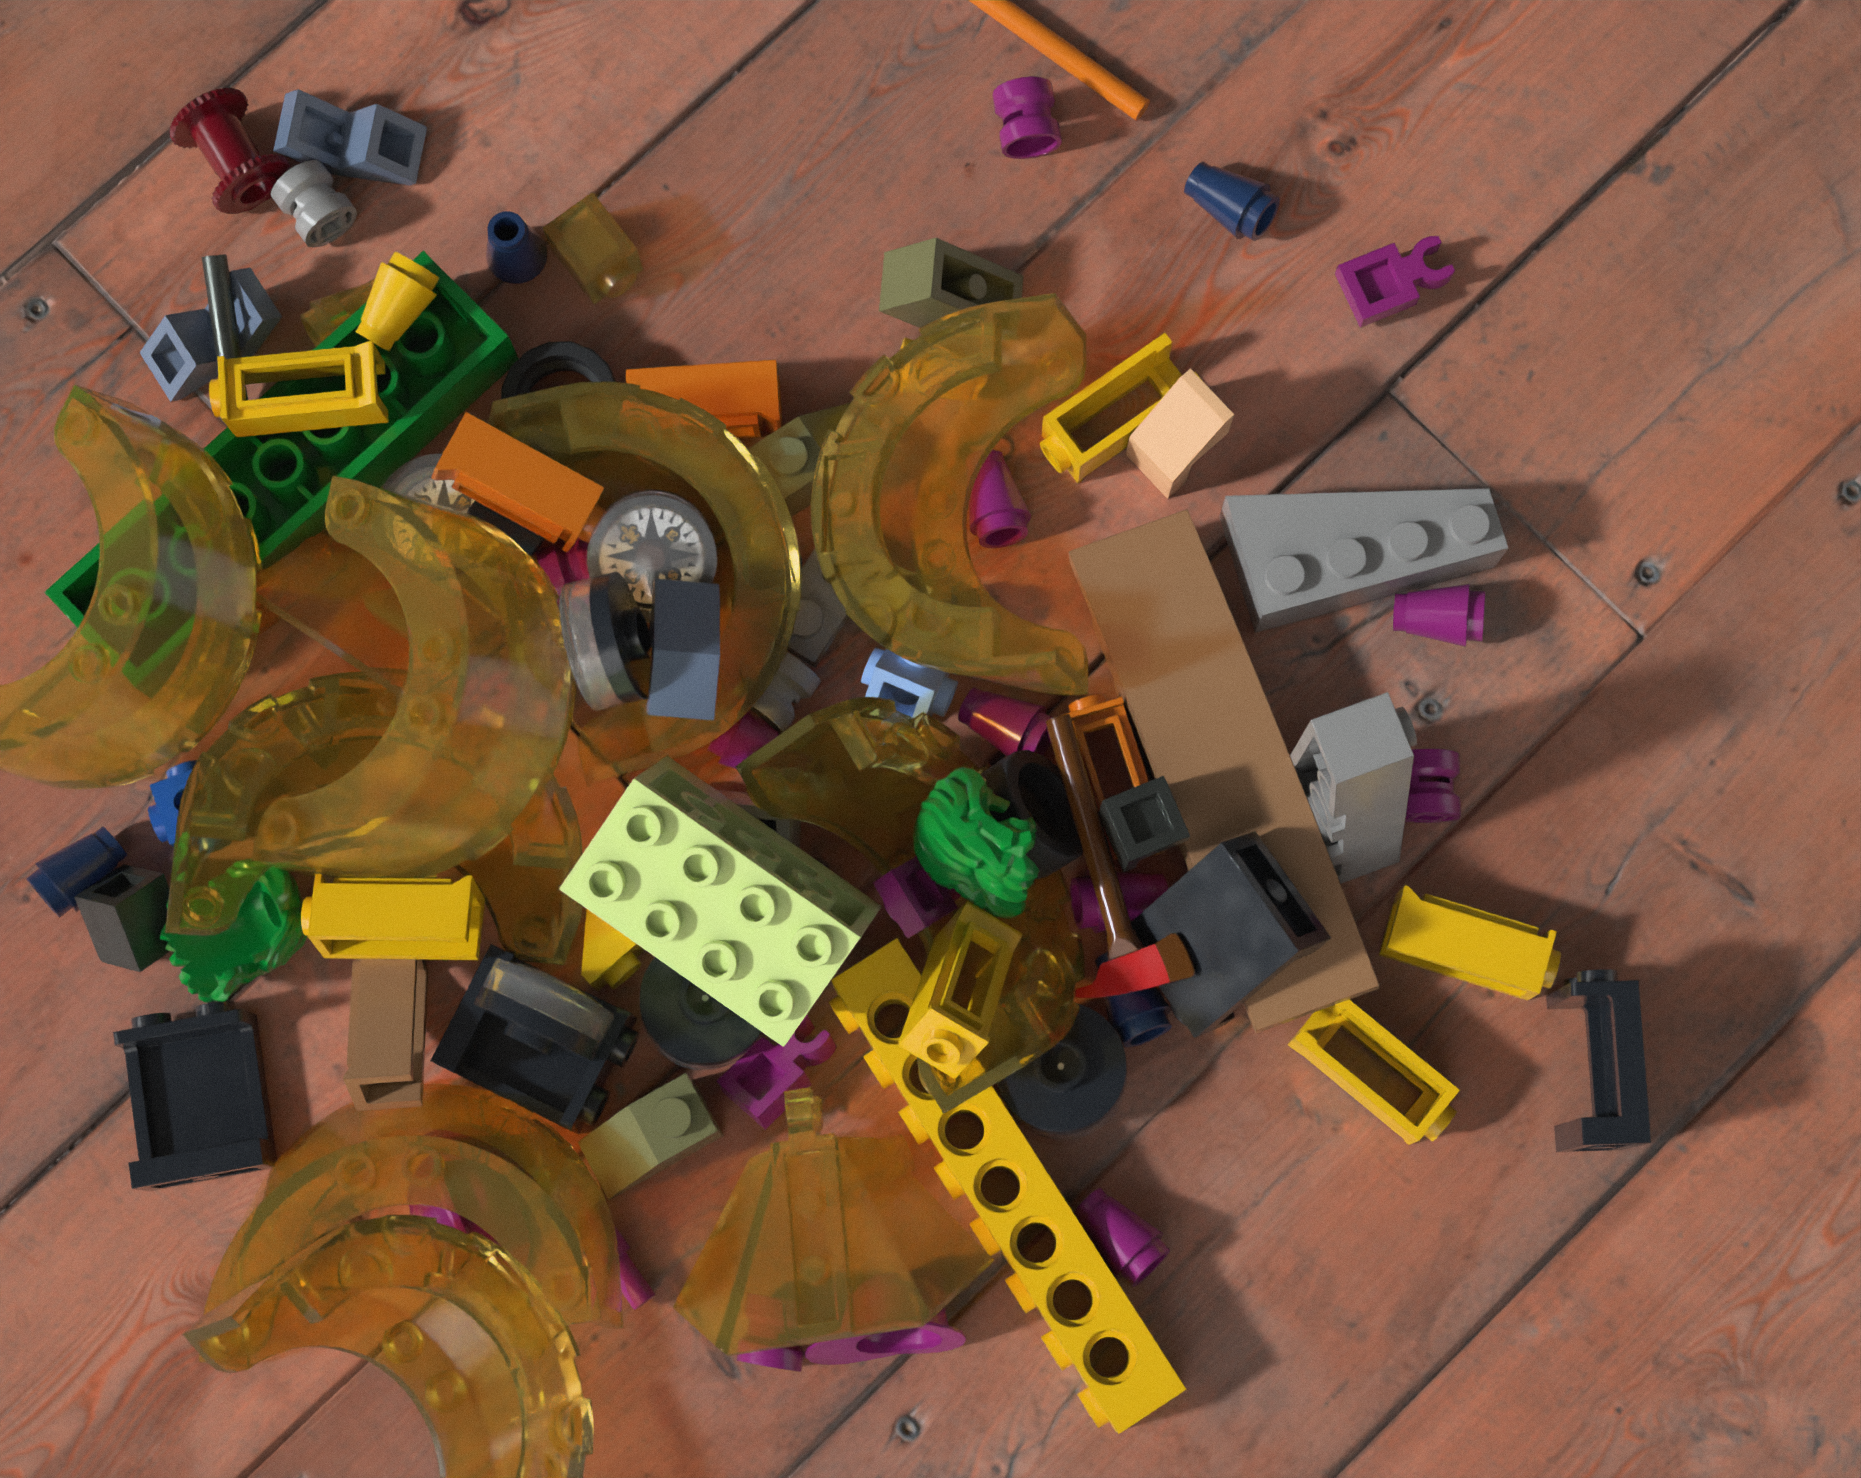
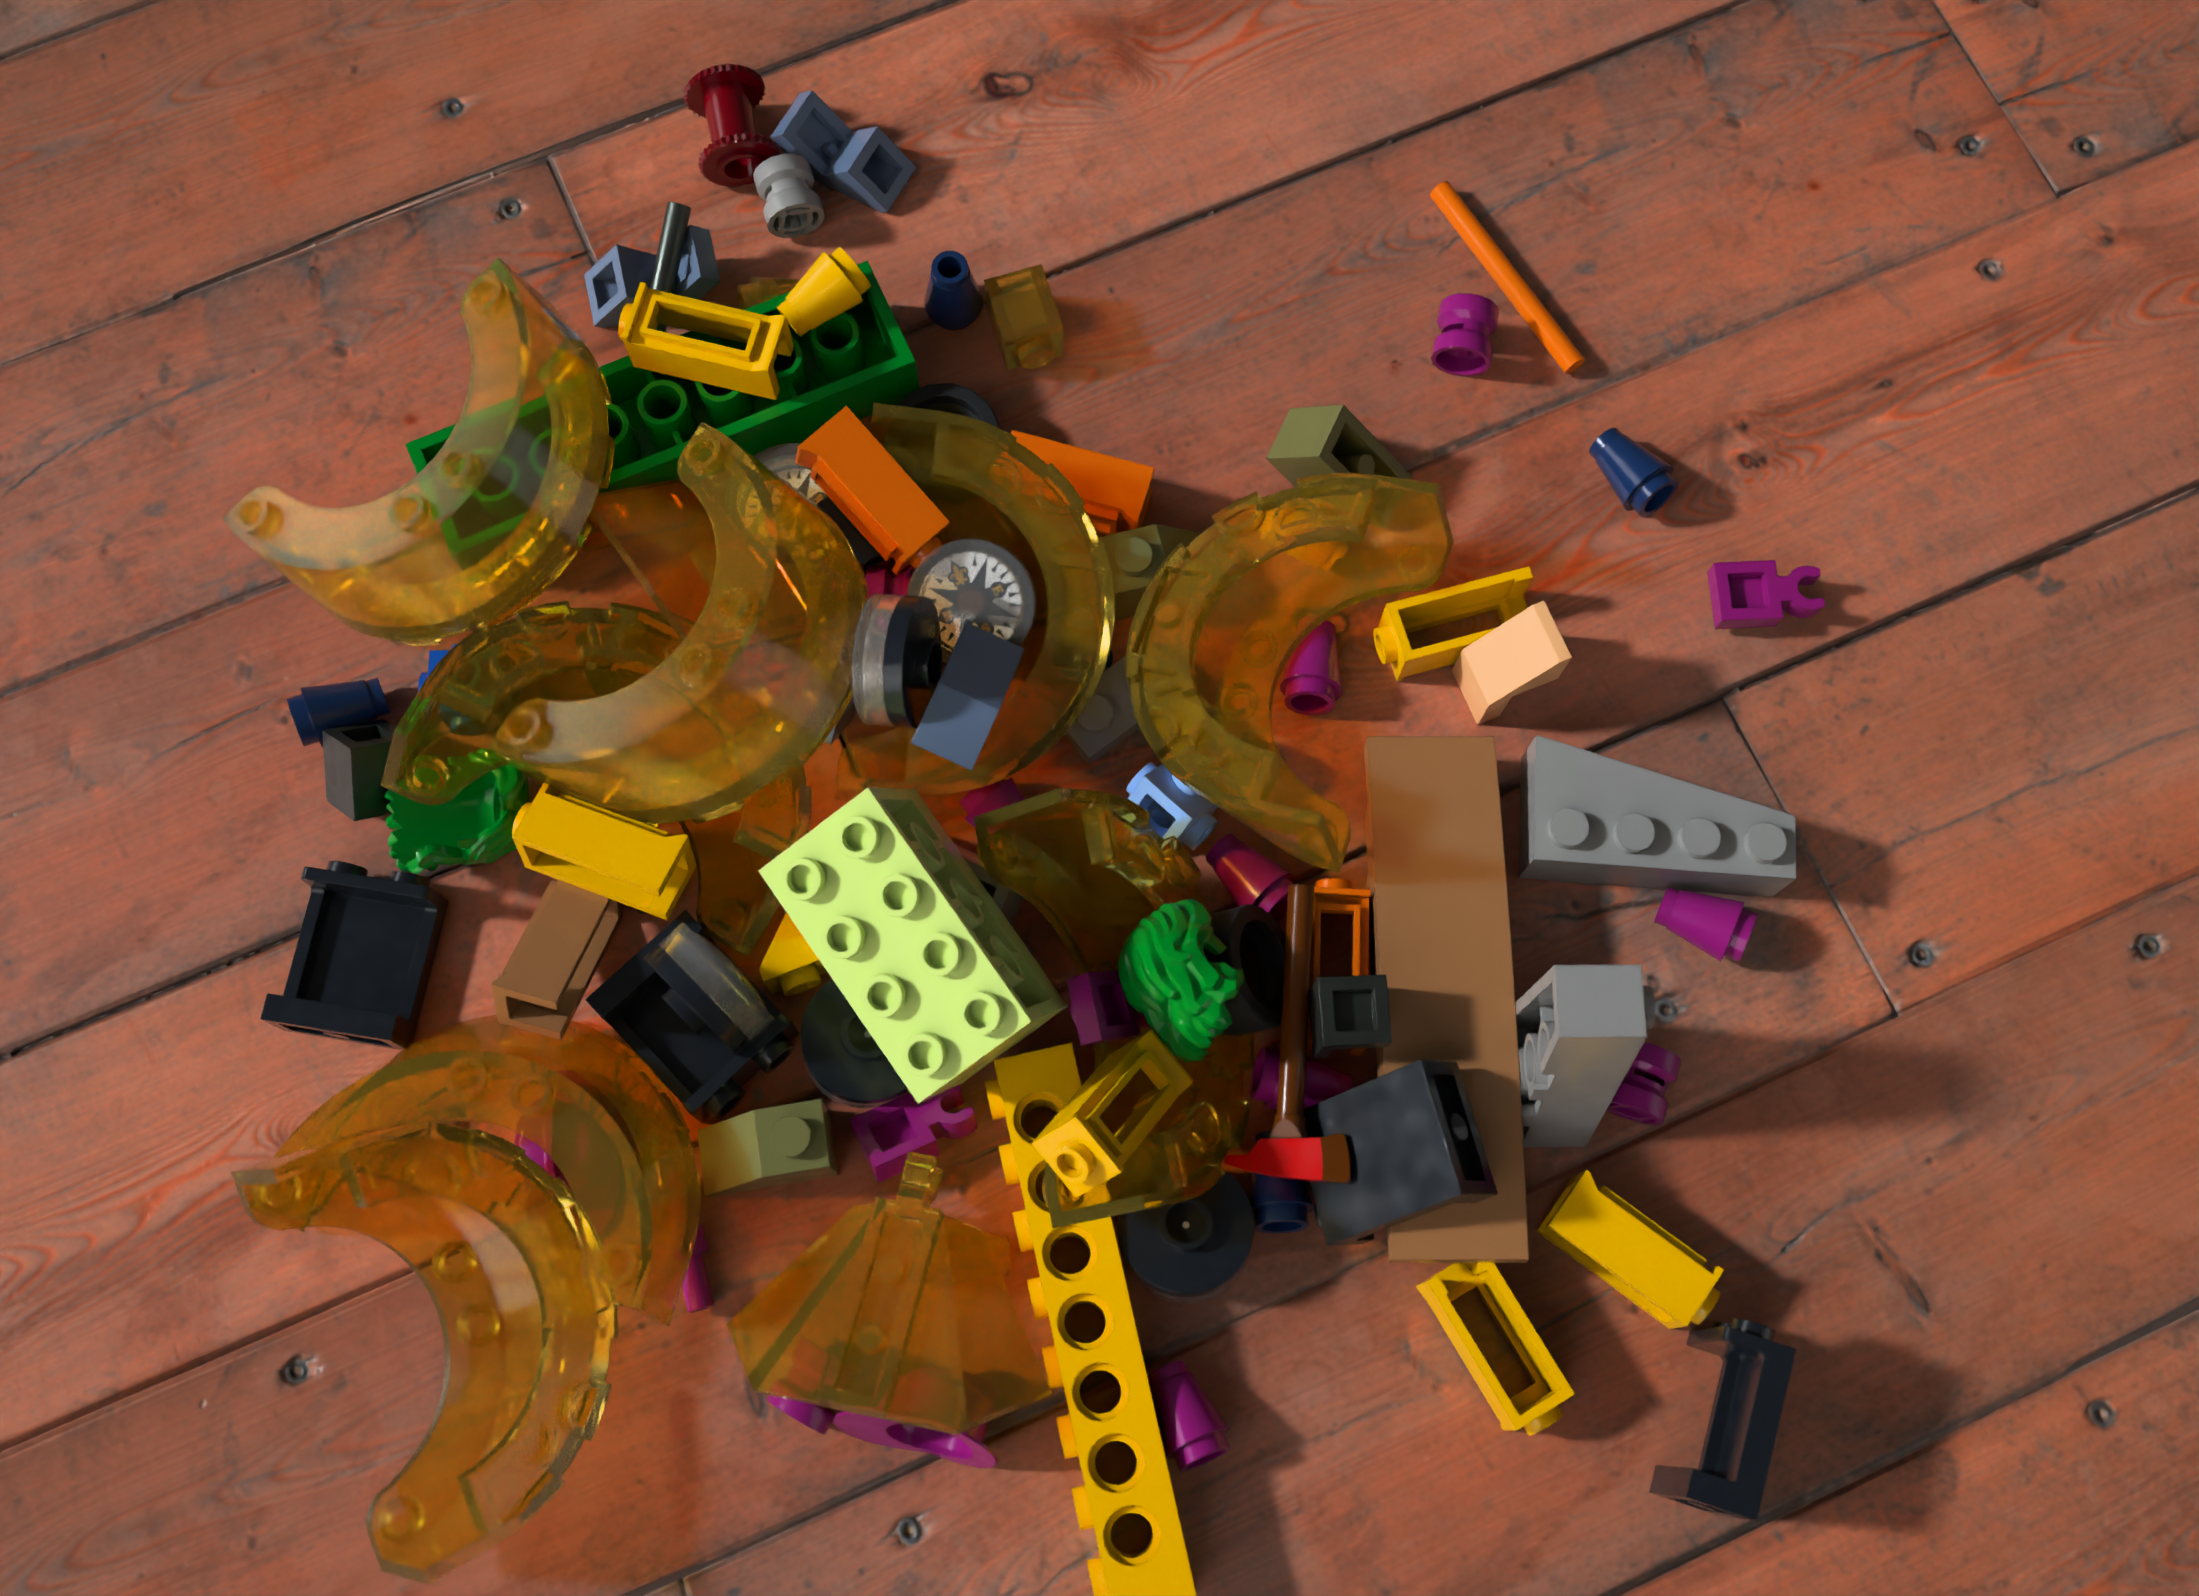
camera: 15 degrees right, 5 degrees down
(791, 684) = (1055, 769): light grey wheel -> none

